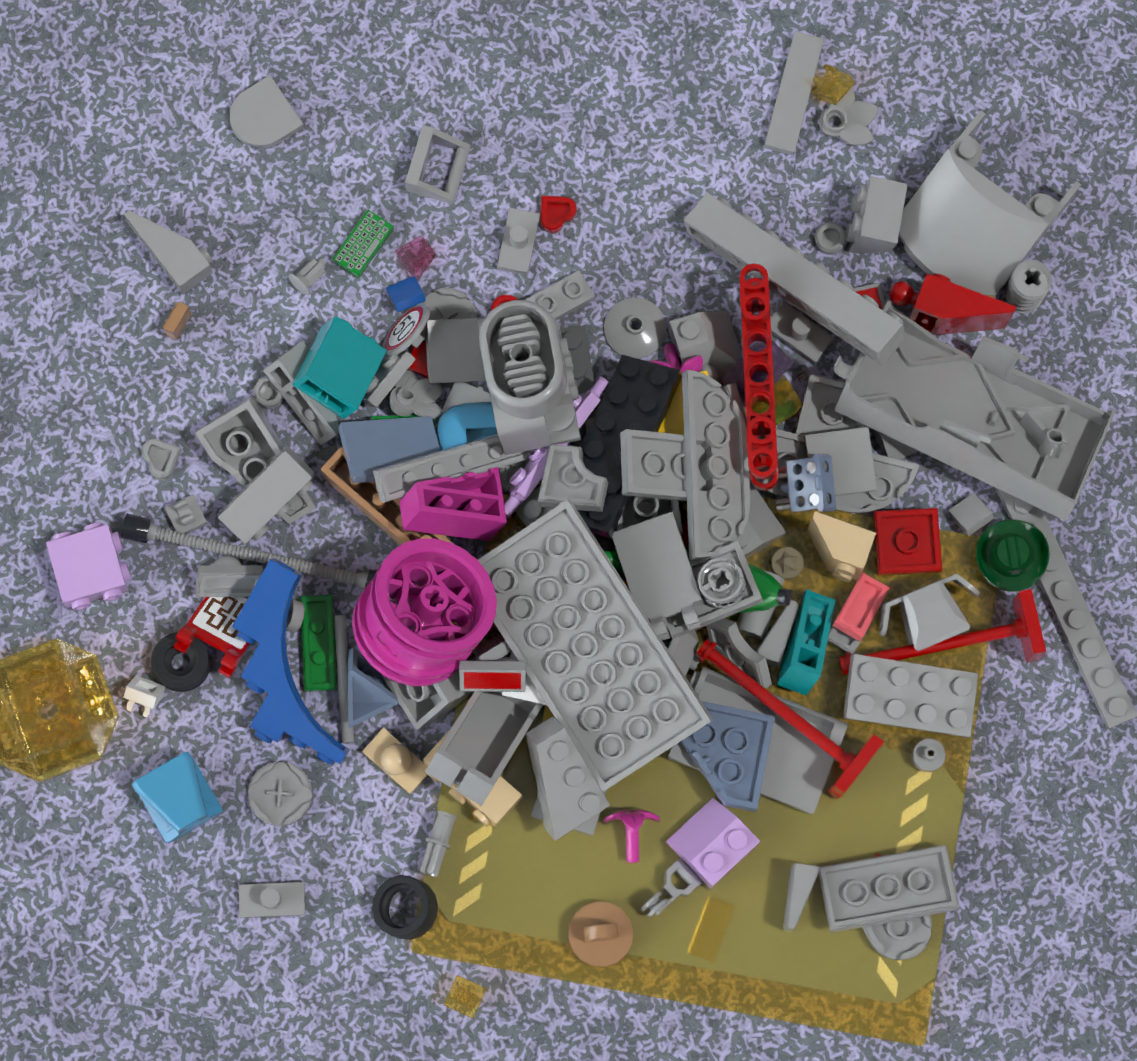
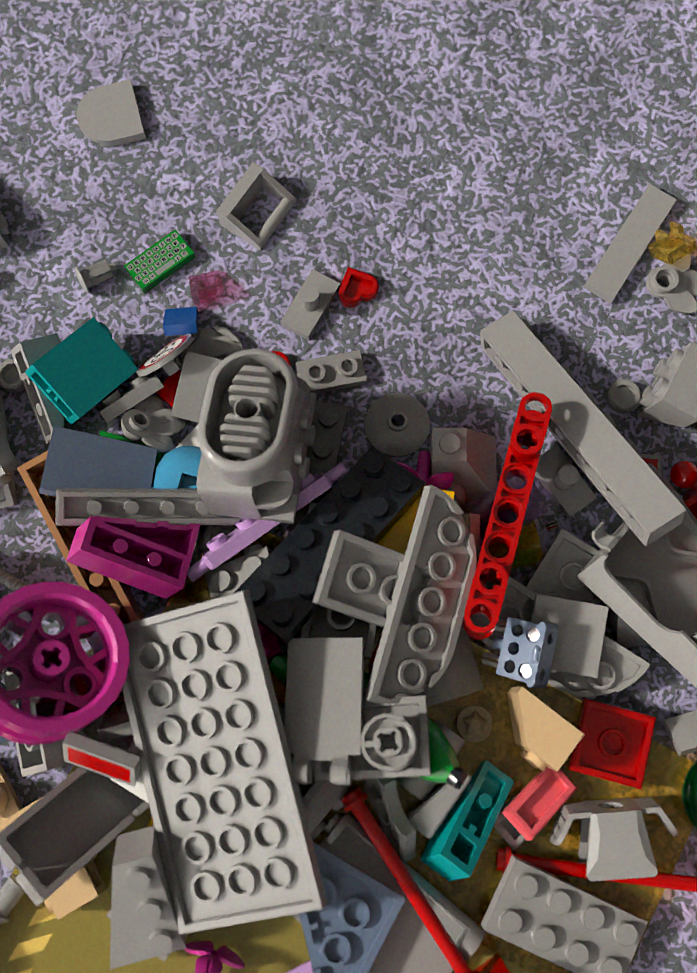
camera: 25 degrees right, 0 degrees up
(568, 478) = (263, 567): light grey tile -> none

